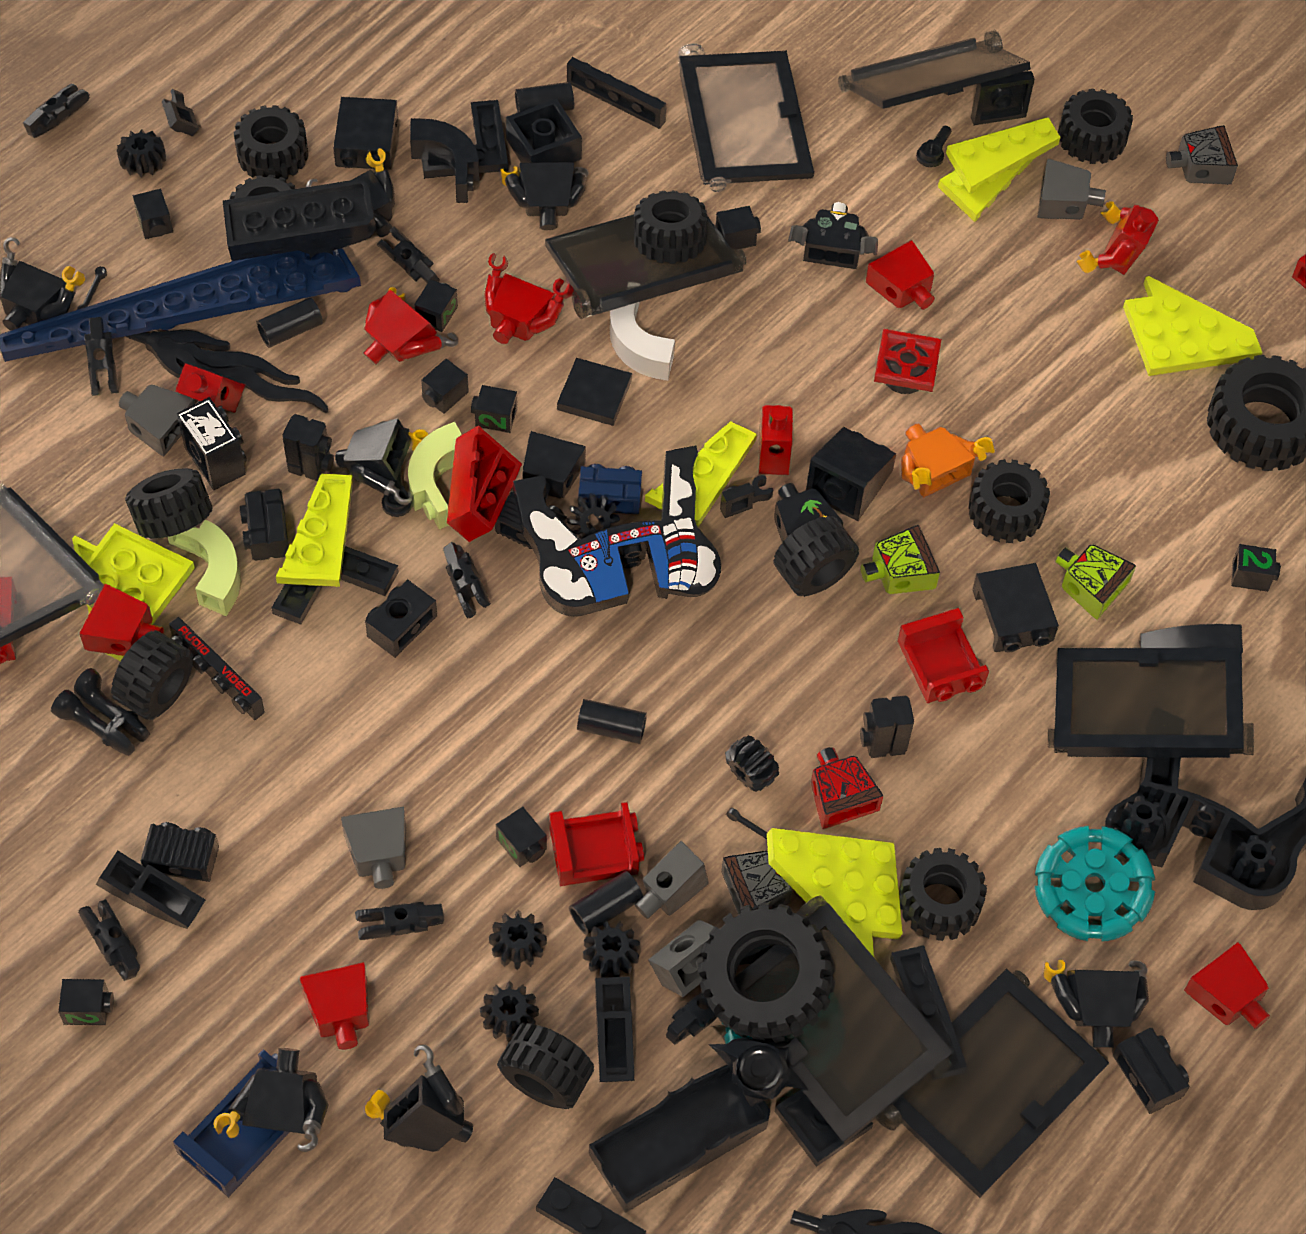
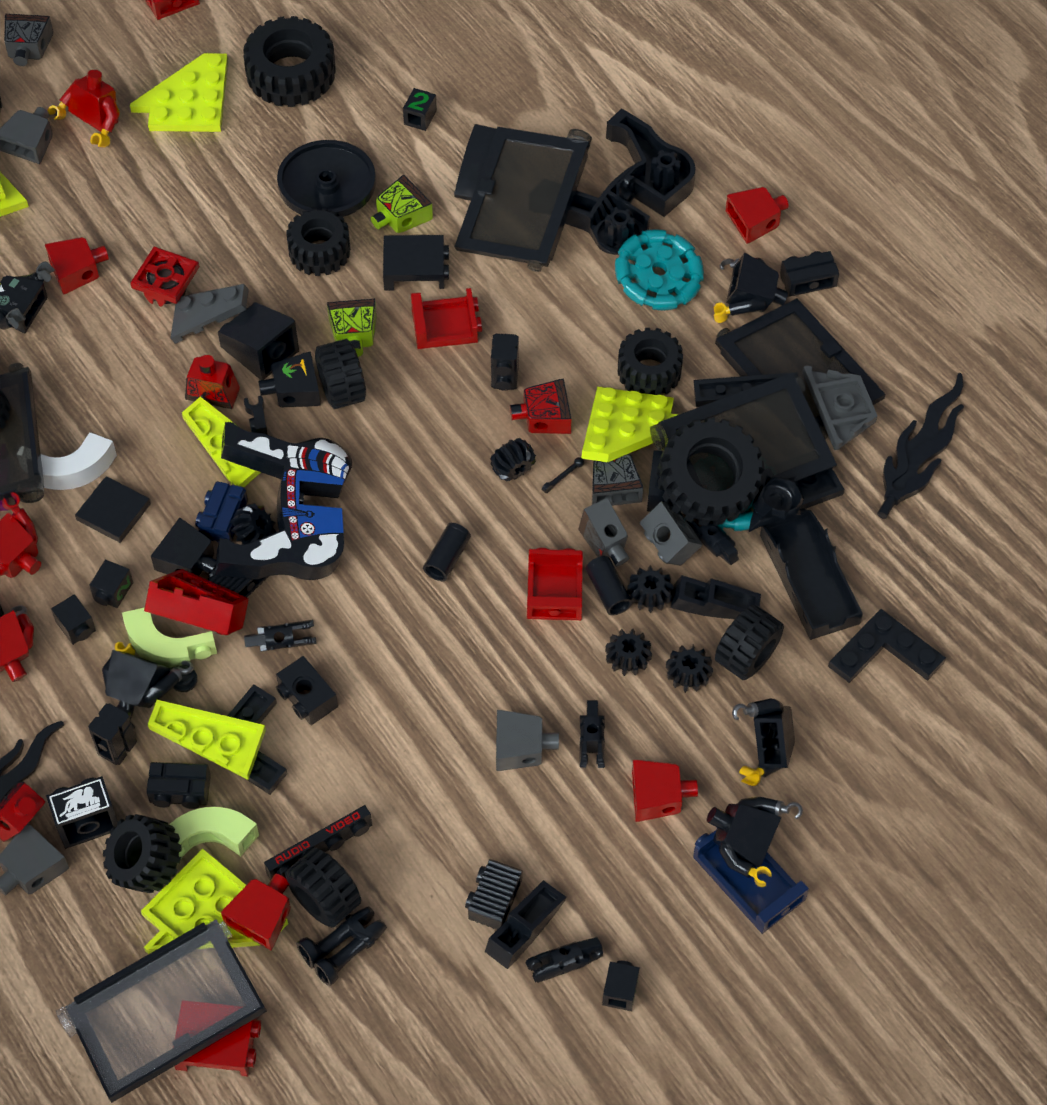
camera: 75 degrees left, 0 degrees up
(521, 837) = (538, 634): black brick -> none
(877, 411) = (203, 308): none -> dark grey wing
(938, 1133) = (841, 404): none -> dark grey wing
(939, 458) = (265, 277): orange torso -> none
(1103, 489) = (326, 177): none -> black dish

